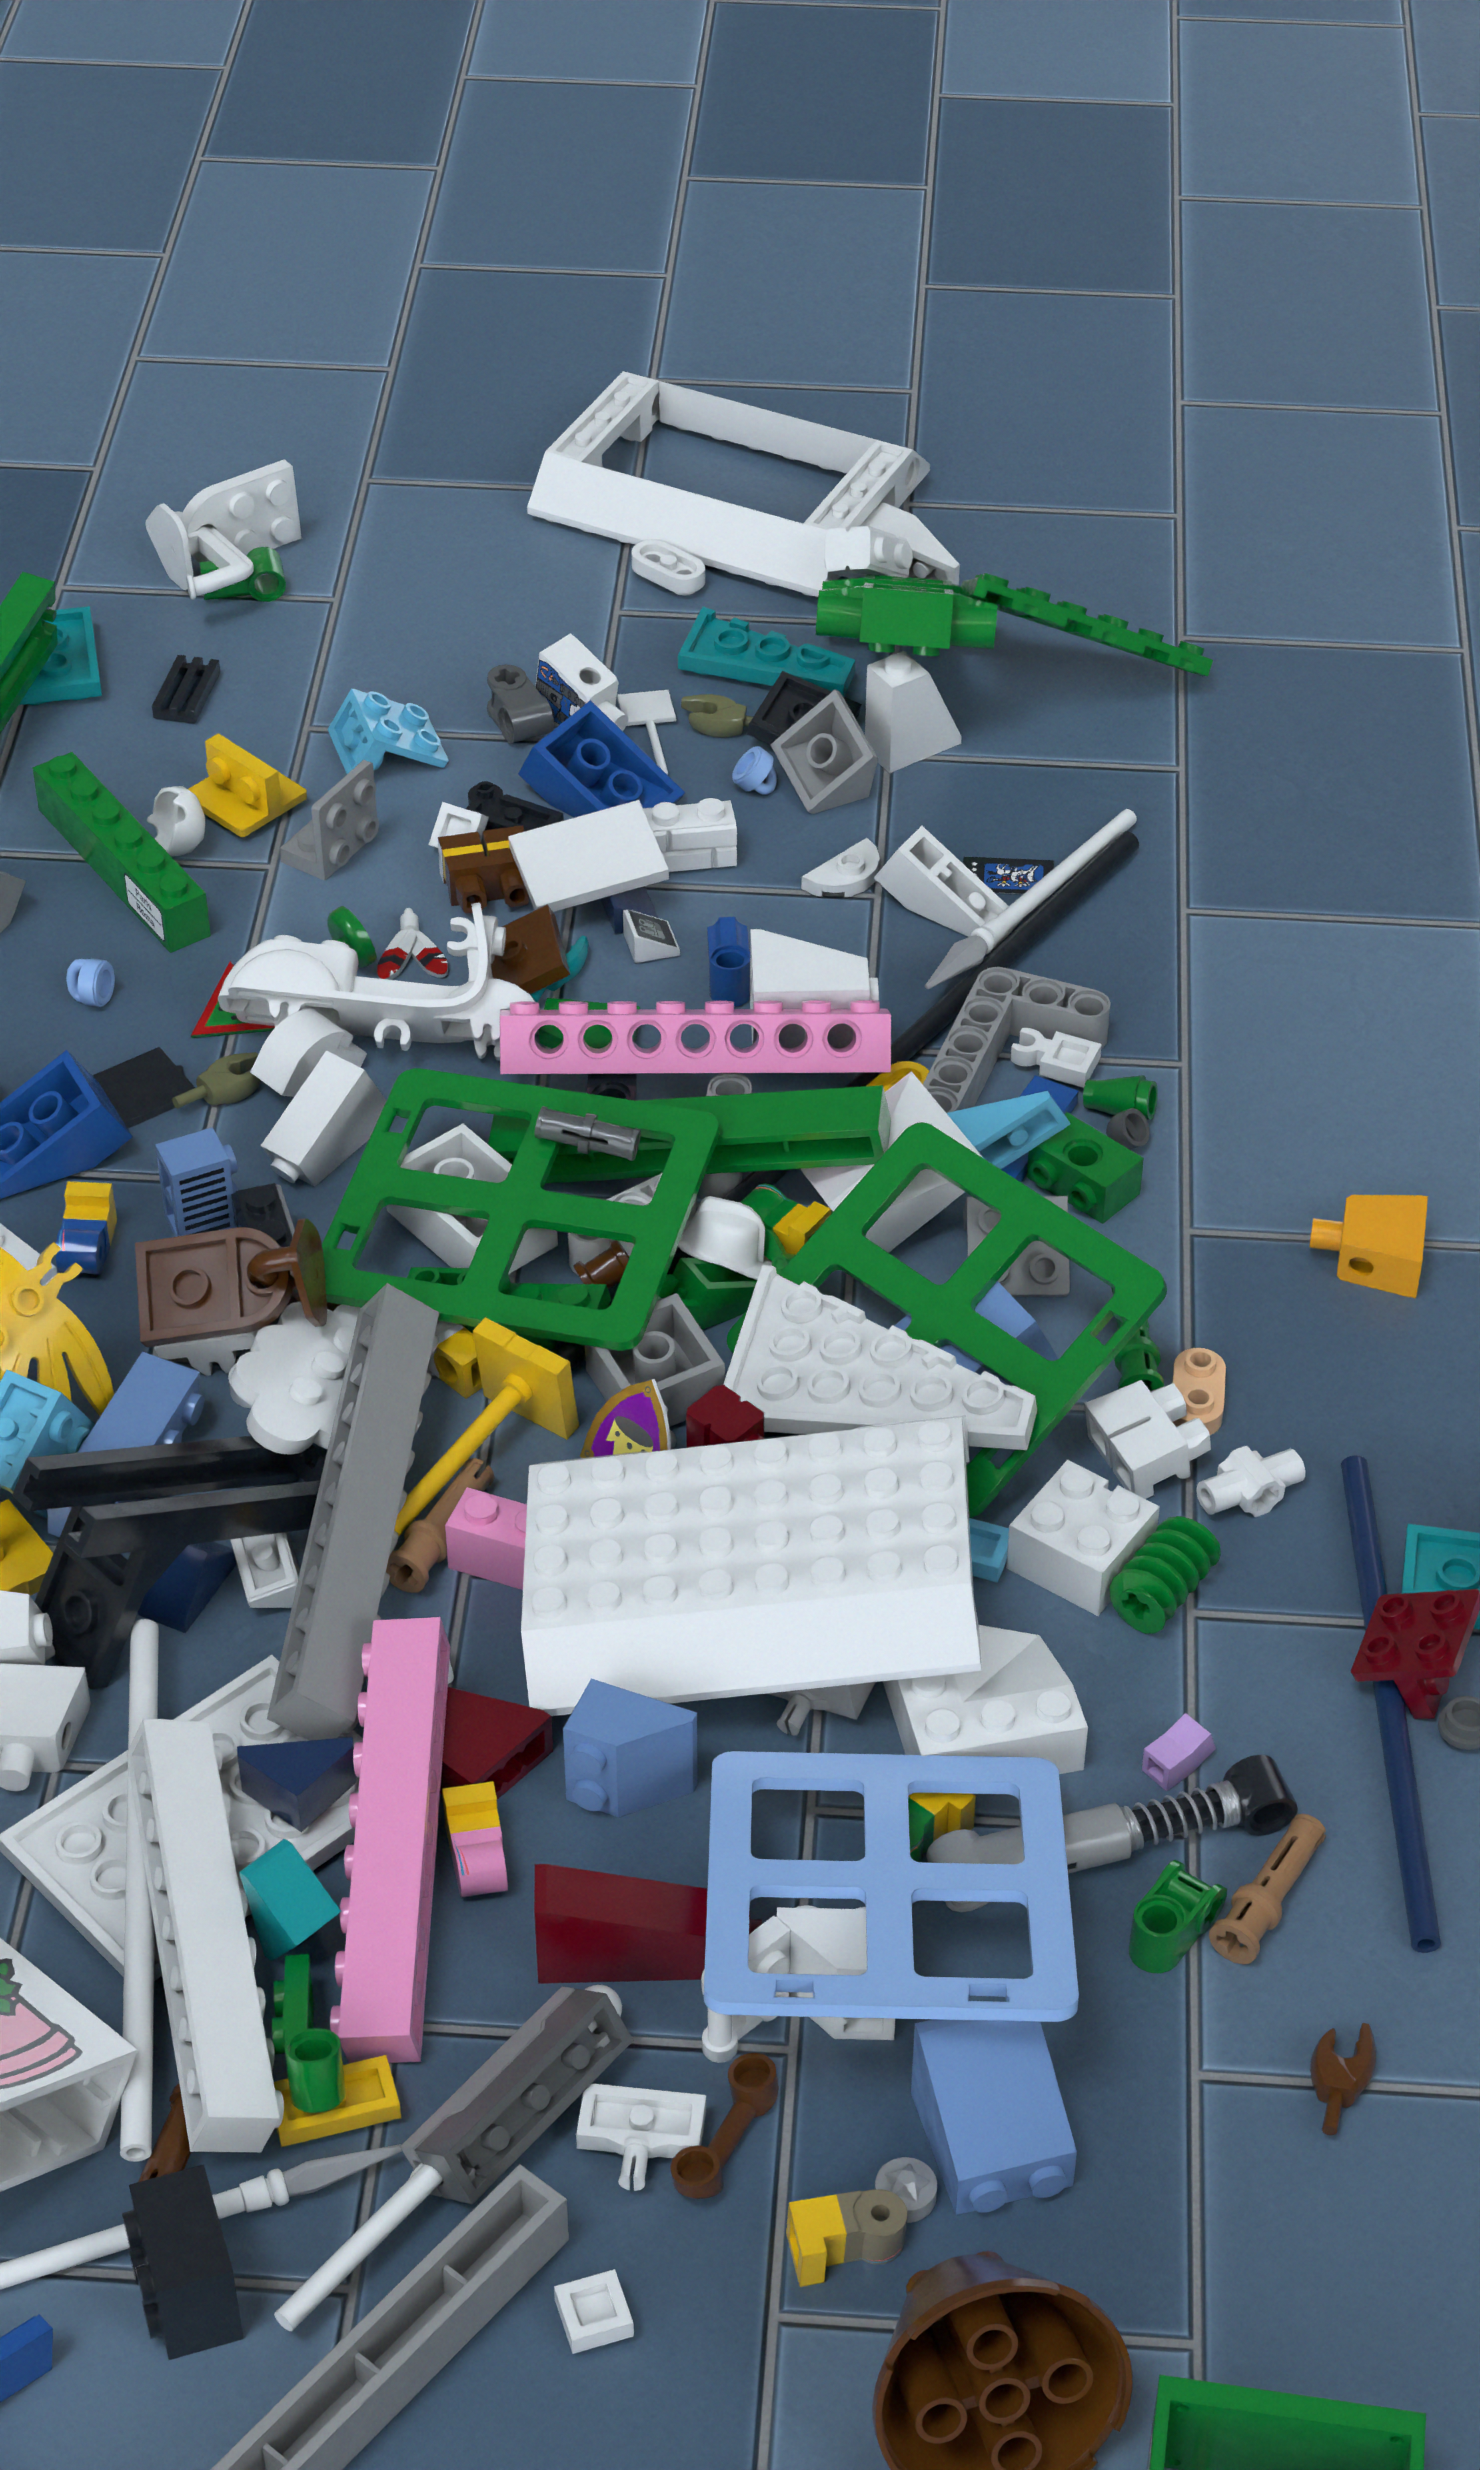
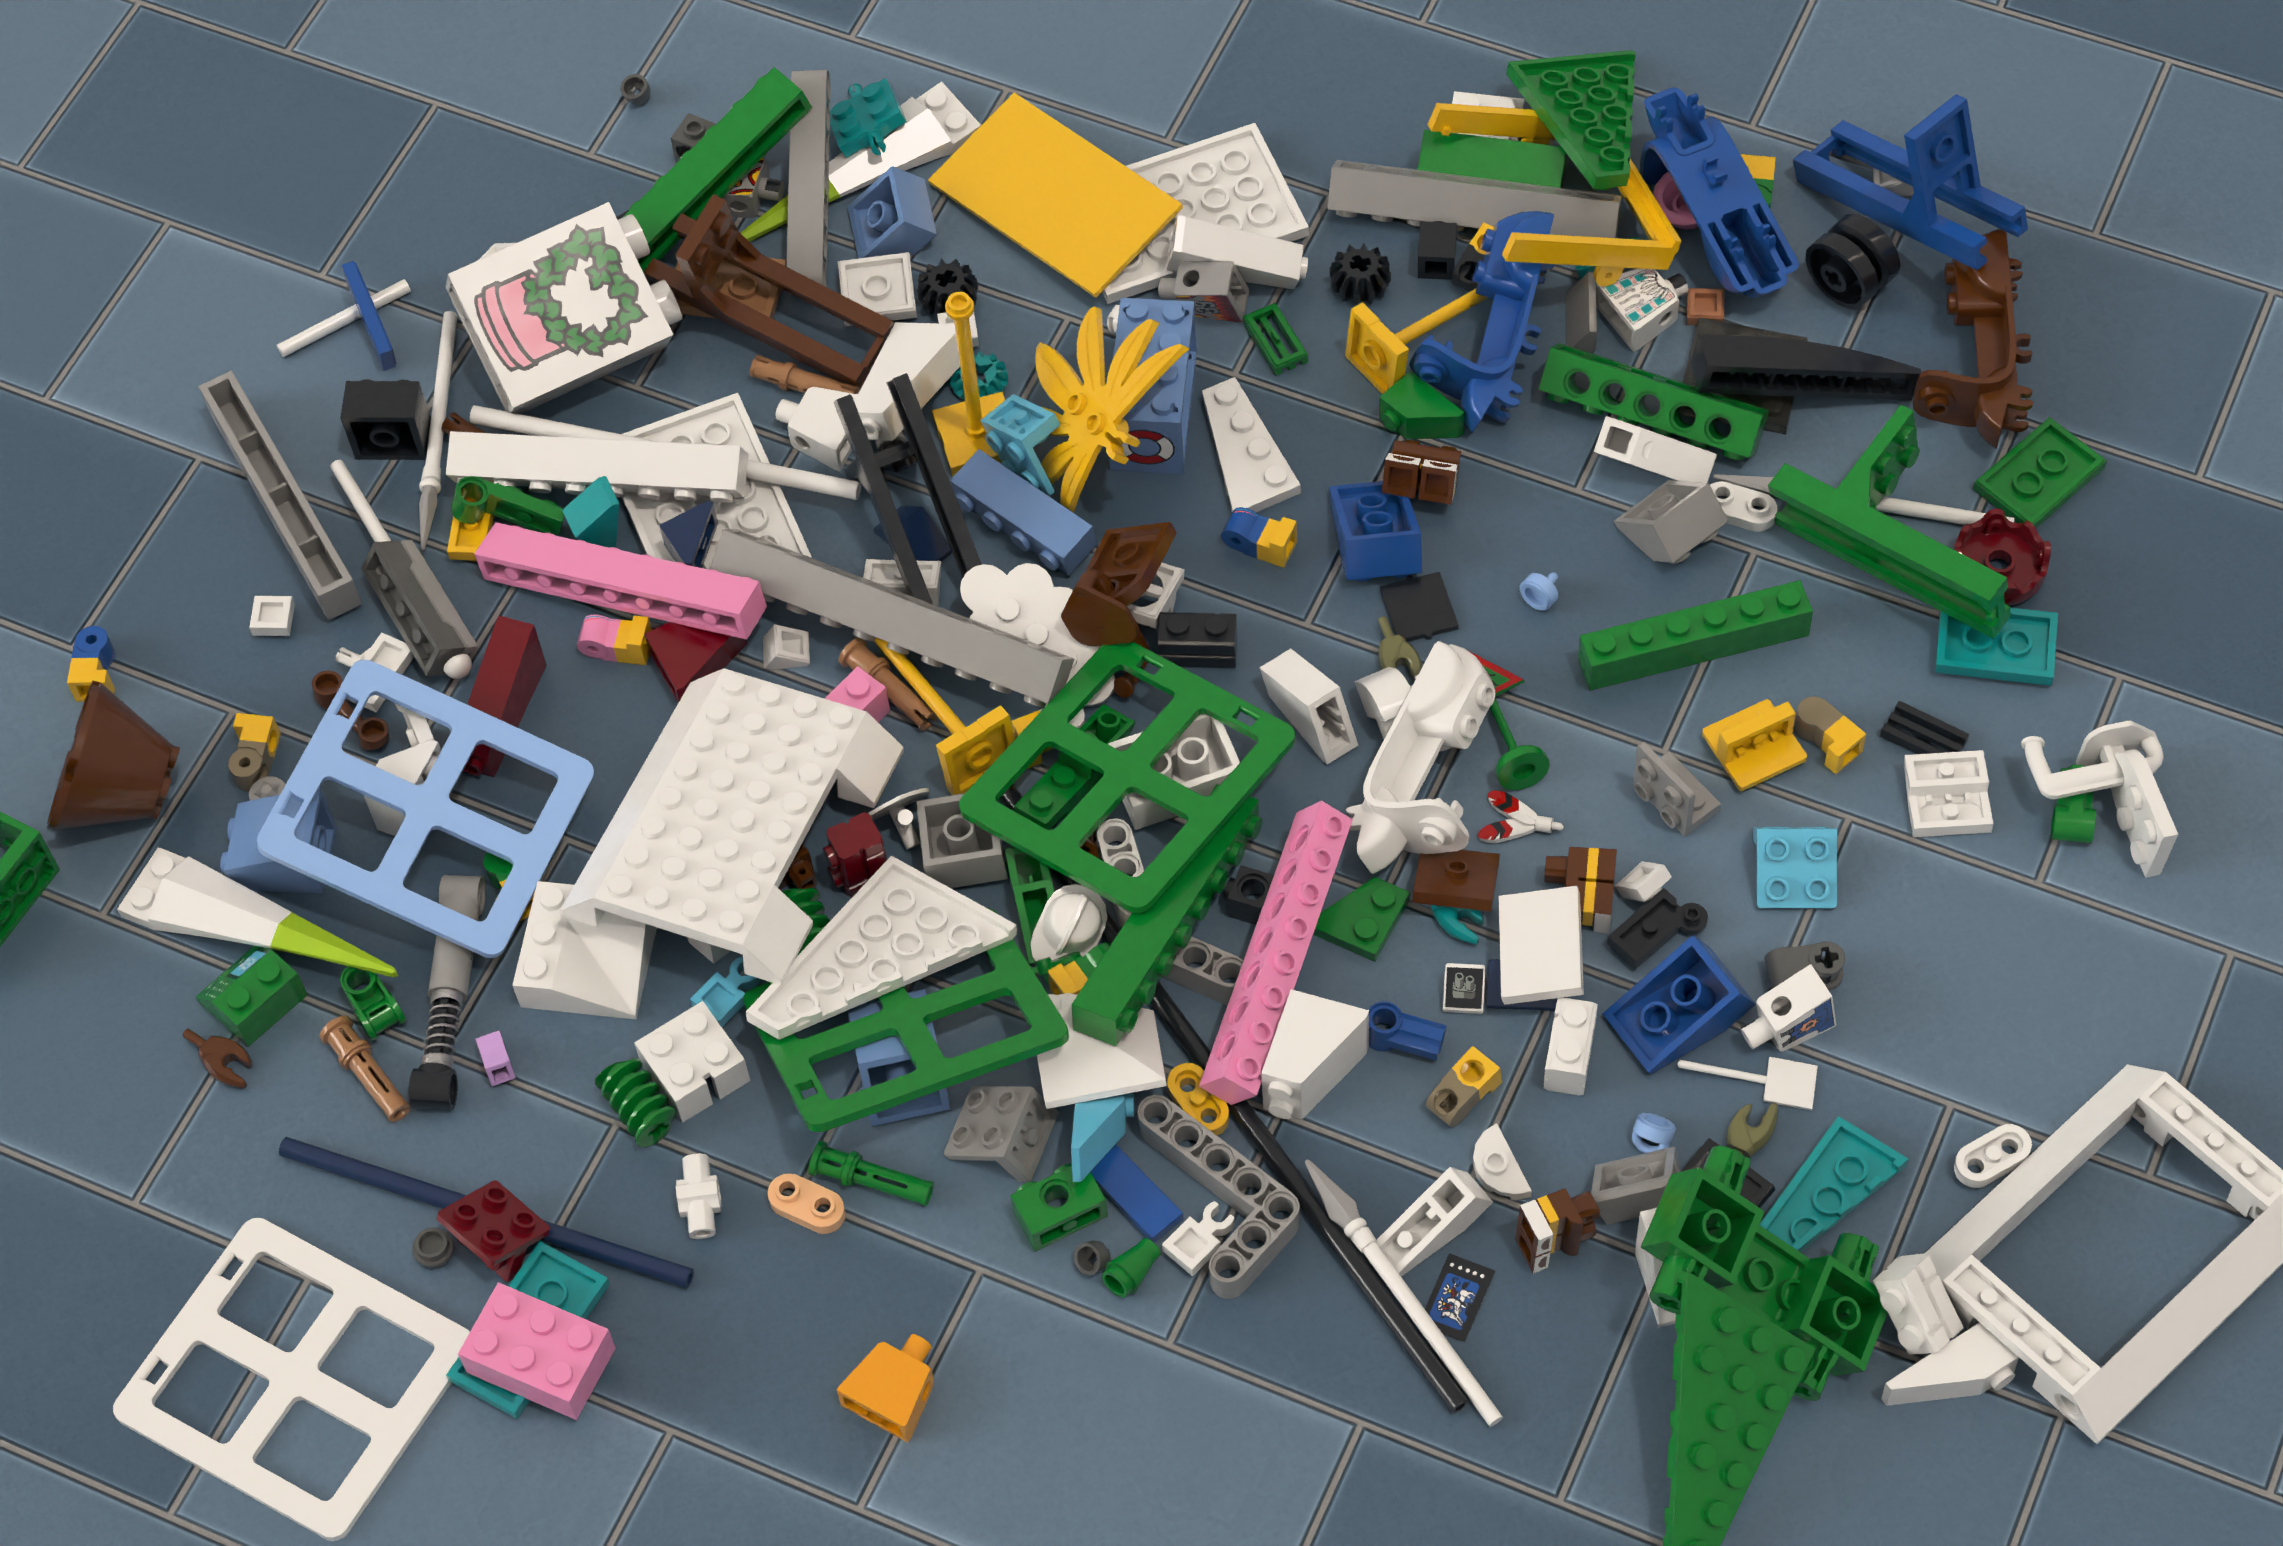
camera: 115 degrees right, 15 degrees up
(178, 820) = (1713, 683): white hair -> none
(197, 1182) = (1257, 597): medium blue brick -> none
(218, 718) = (1830, 731): none -> leg
(258, 659) = (1948, 793): none -> white slope
(587, 1133) = (1157, 818): dark grey pin -> none
(628, 1751) = (630, 721): medium blue slope -> none
(774, 902) = (1464, 1087): none -> leg
(911, 792) = (1554, 1225): none -> reddish brown hips
(1127, 2199) = (198, 901): none -> white plate
(1139, 1438) = (765, 1141): white hips -> none
(1230, 2067) = (253, 994): none -> green slope

